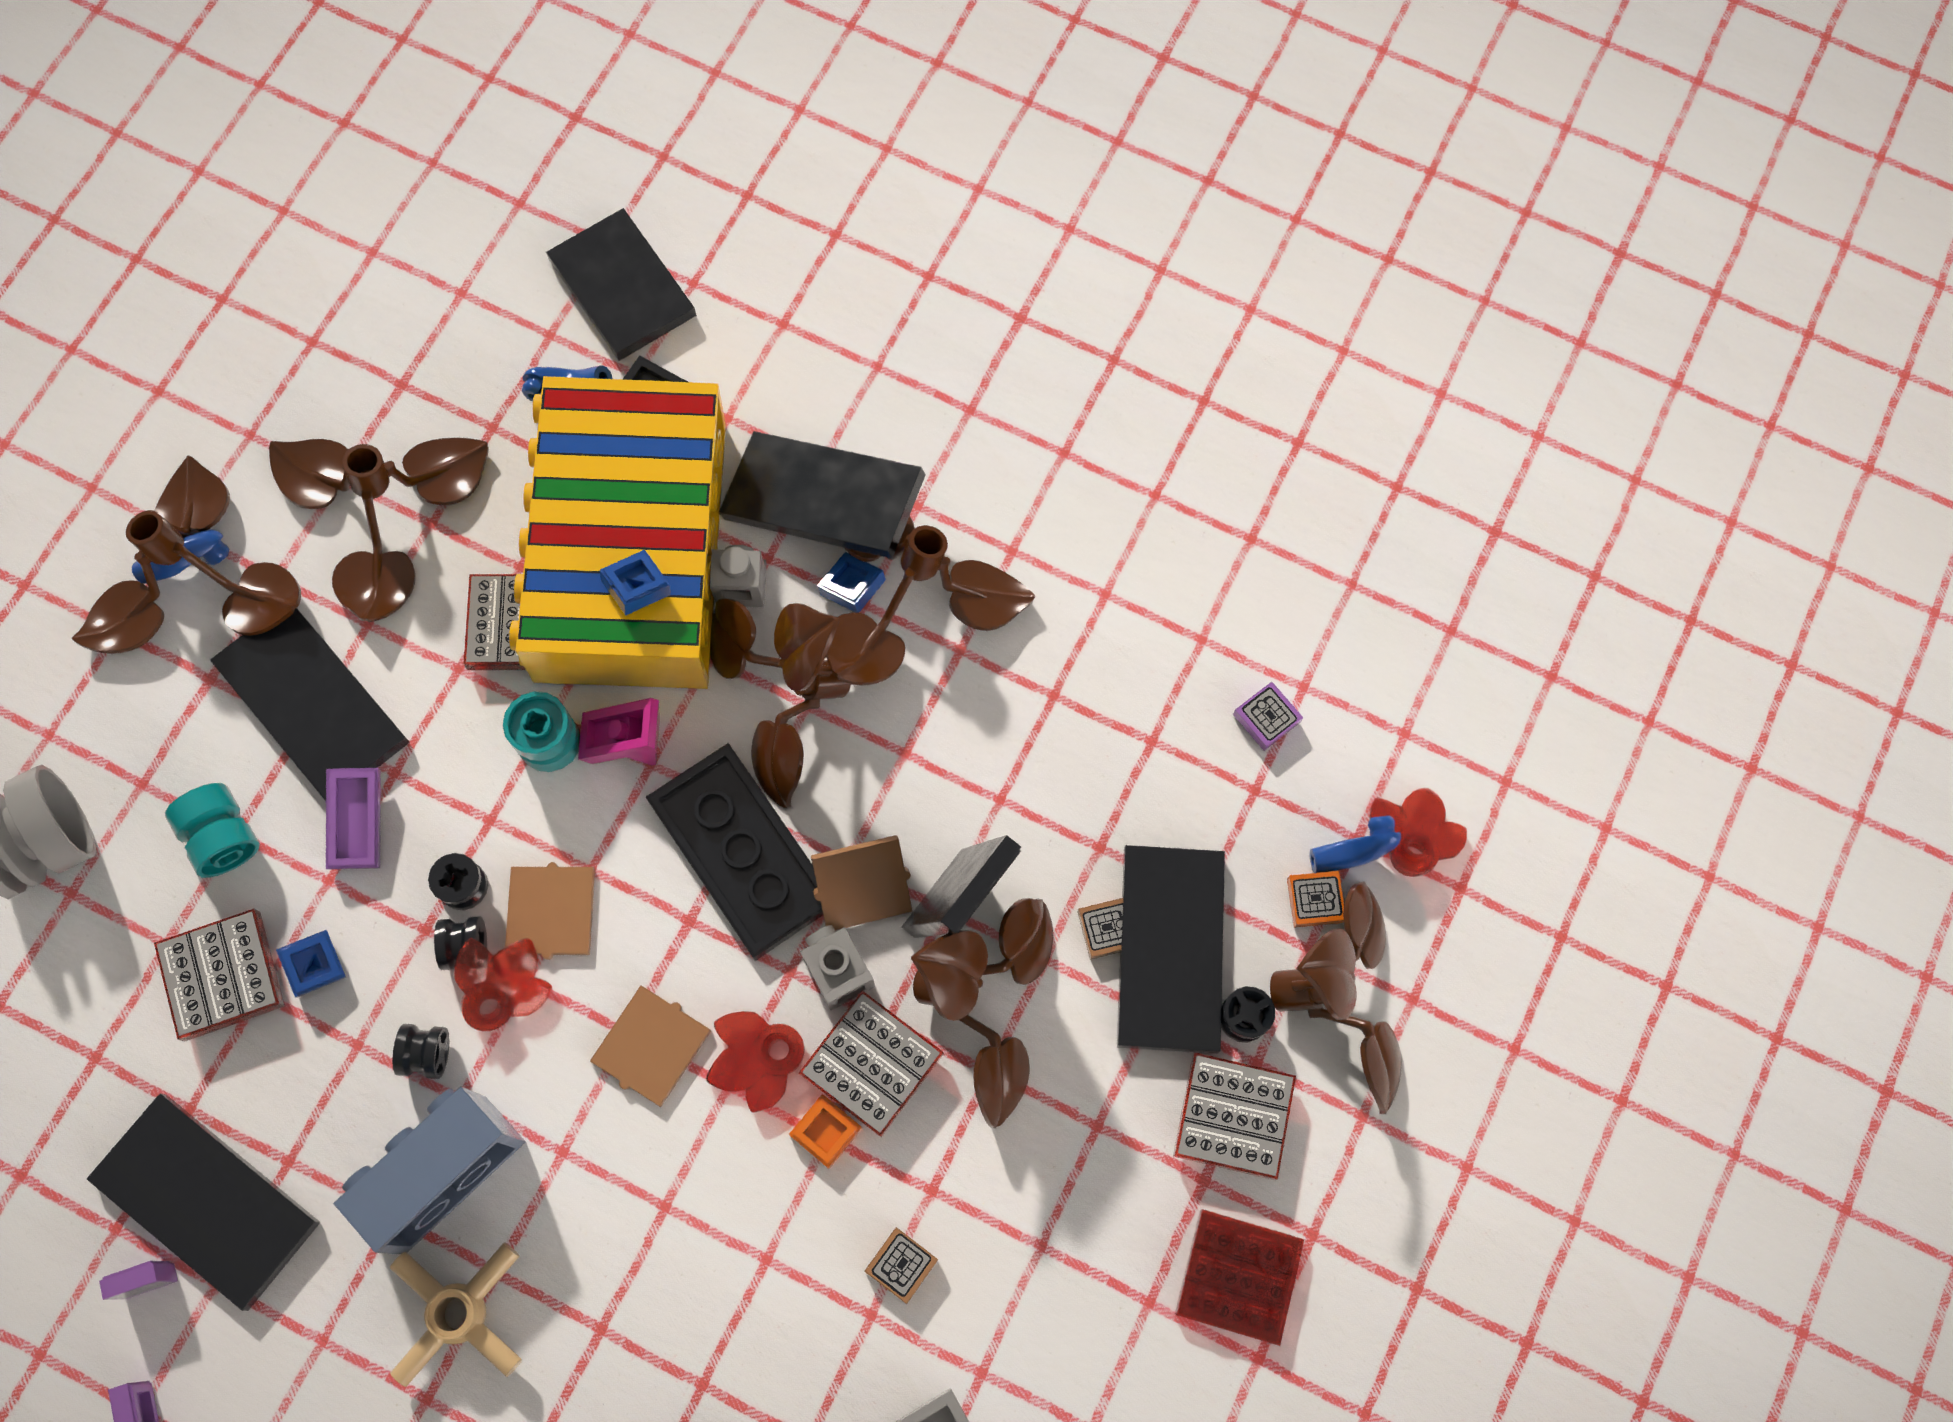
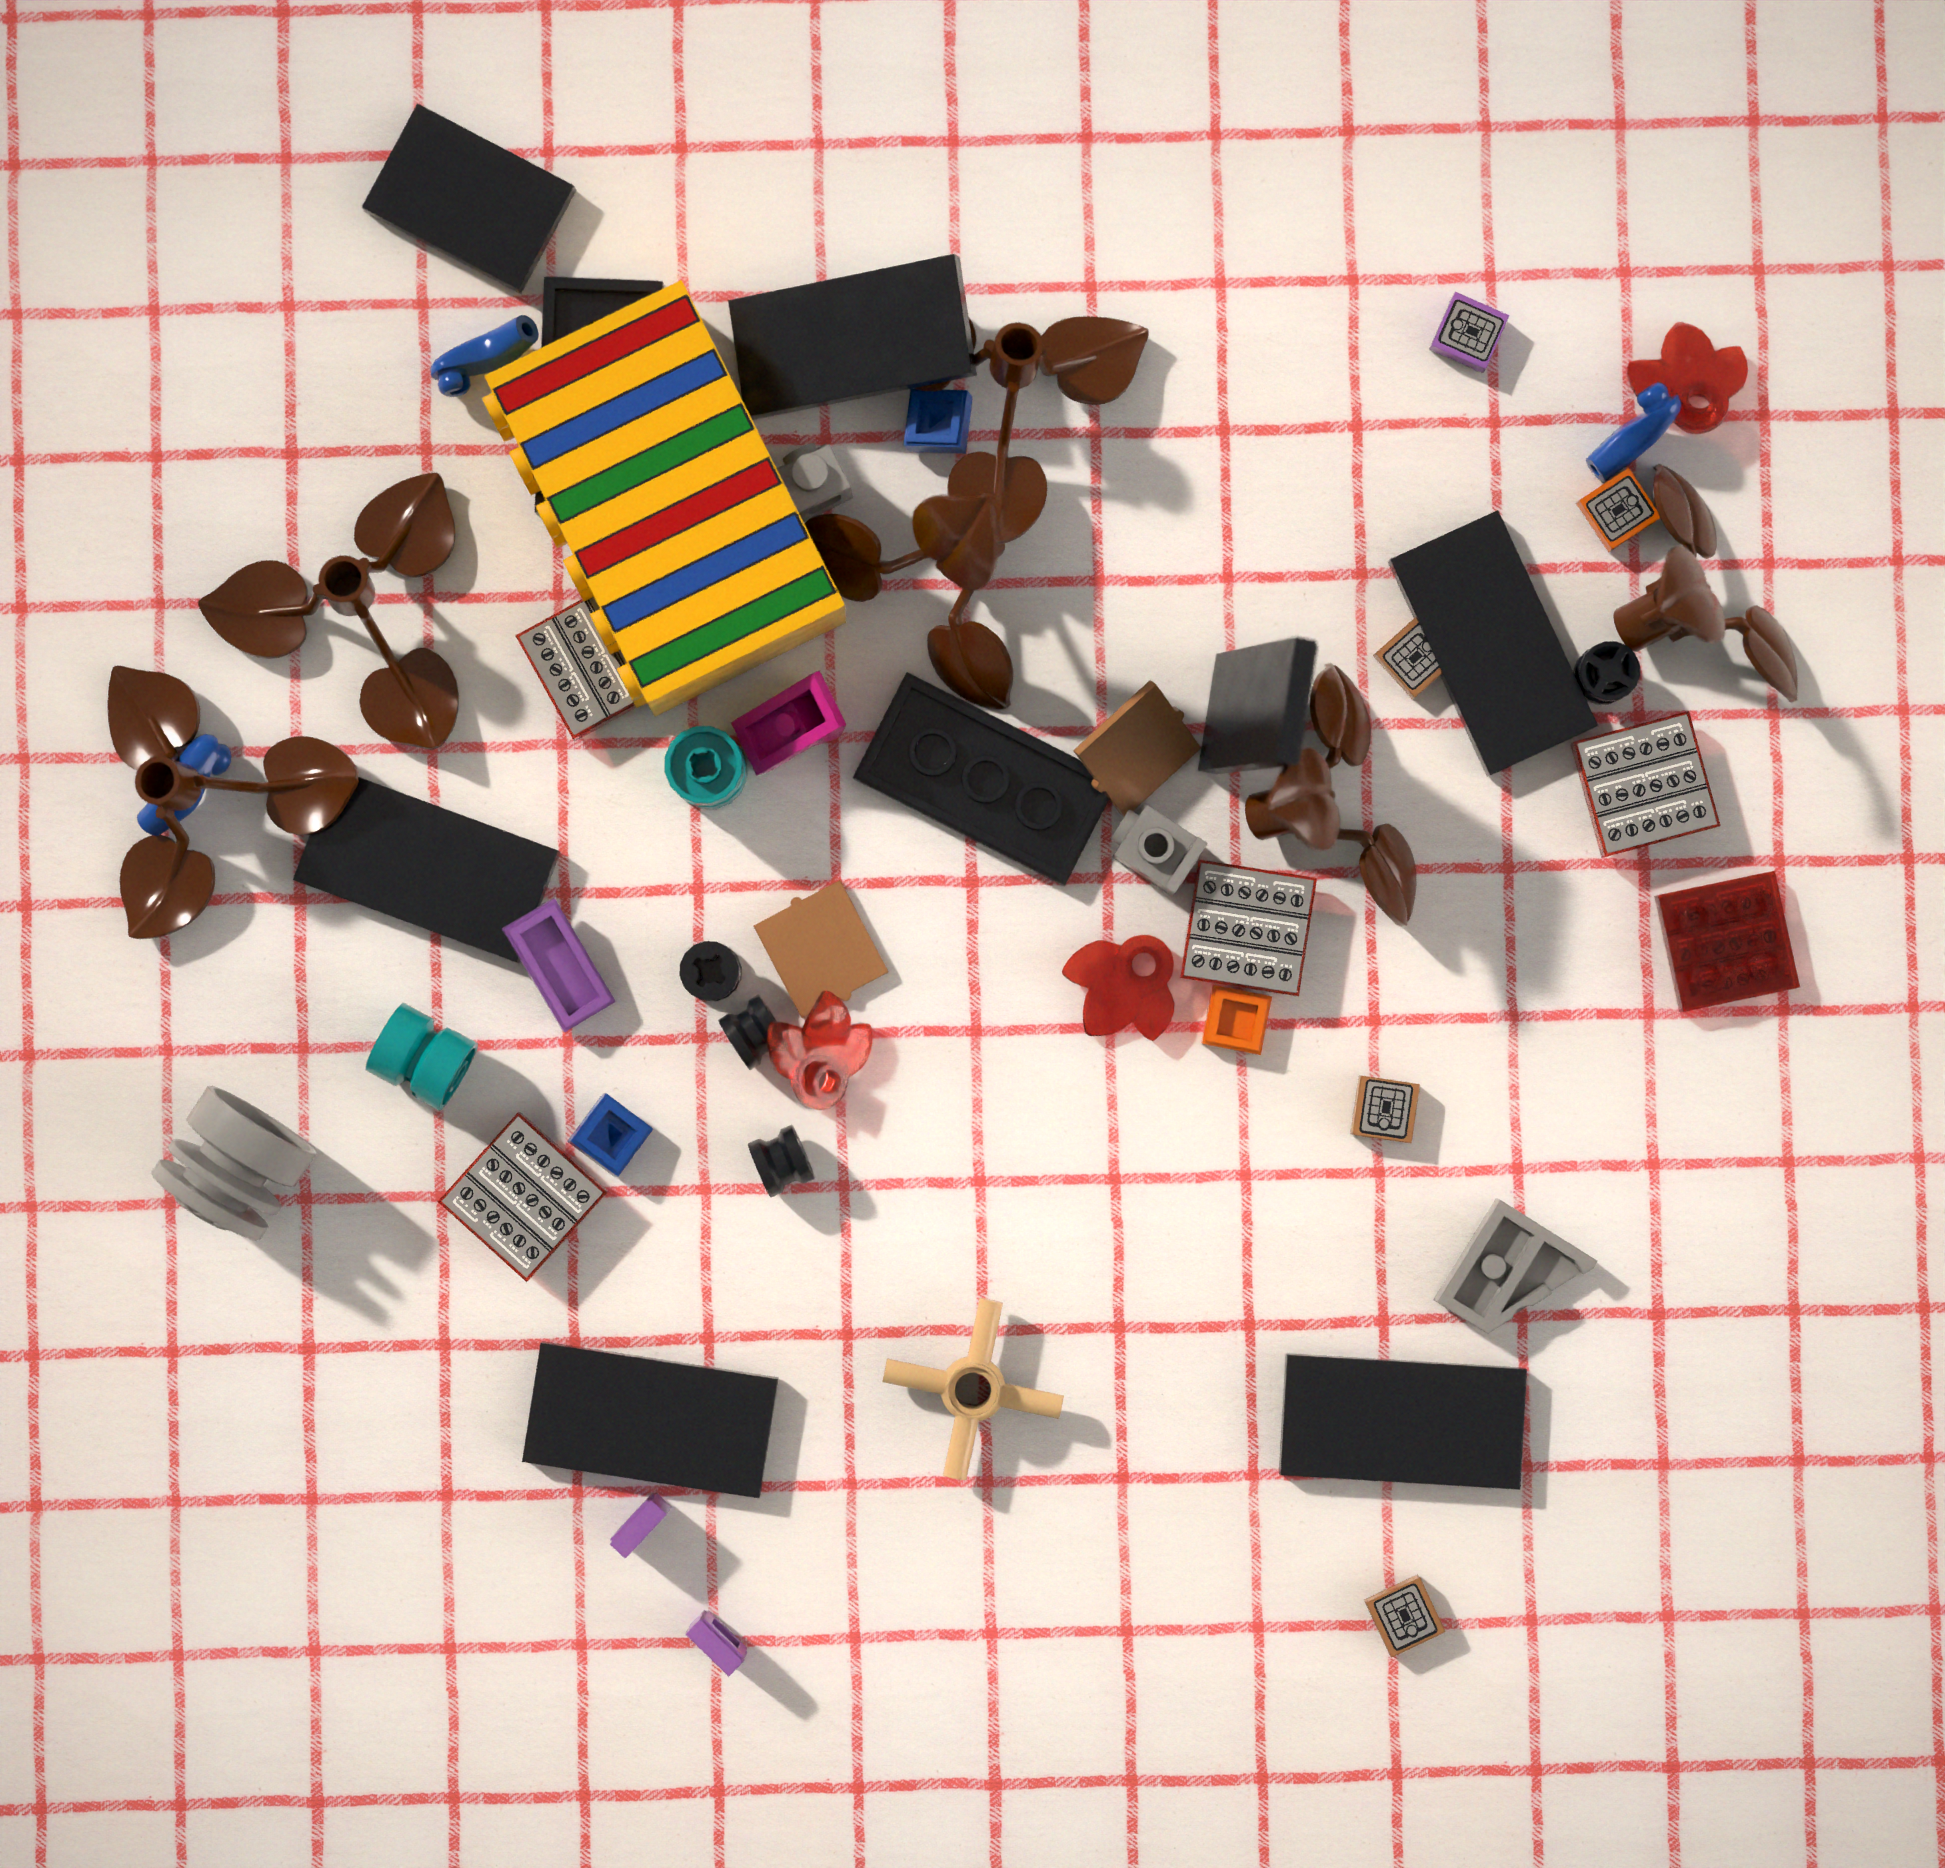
camera: 25 degrees left, 15 degrees up
(428, 1171) = (868, 1269): sand blue brick -> none
(635, 582) = (733, 561): blue tile -> none
(650, 1046) = (1008, 1030): medium nougat piece -> none

